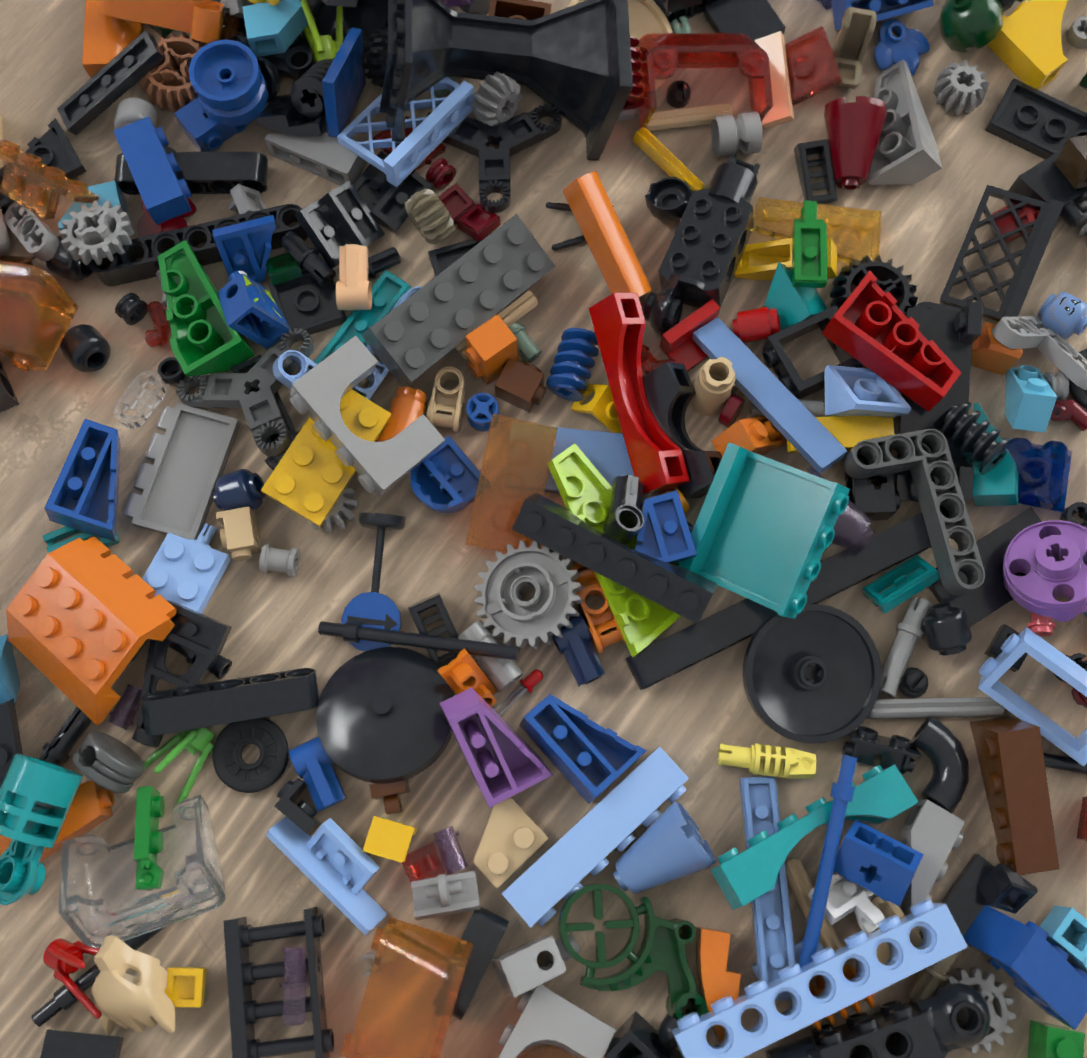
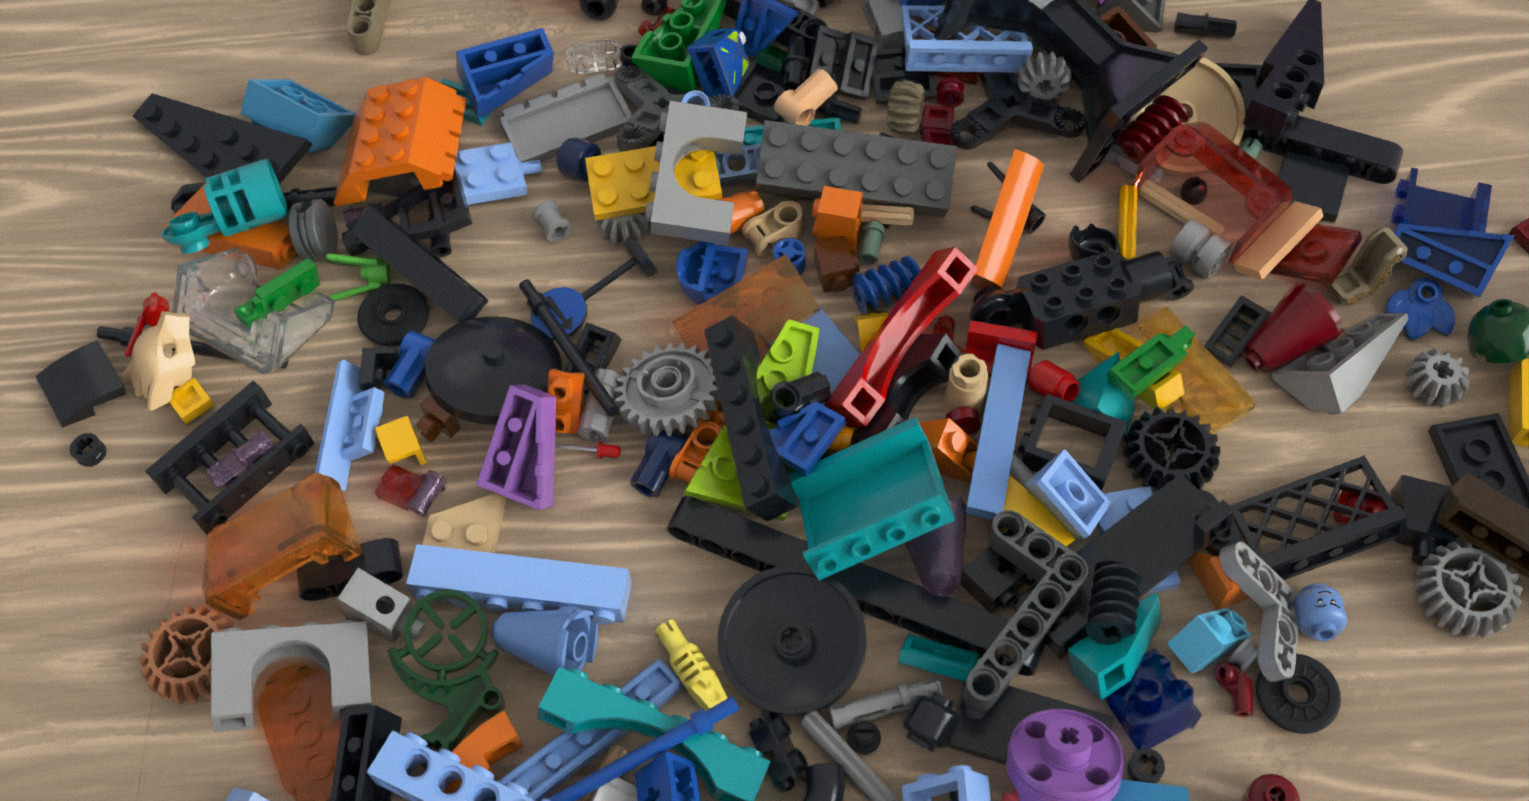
camera: 55 degrees right, 15 degrees down
(239, 532) = (550, 181): tan brick -> none
(445, 895) = (386, 510): light grey hips -> none
(578, 746) = (579, 517): blue wedge -> none
(891, 345) = (1127, 469): red wedge -> none

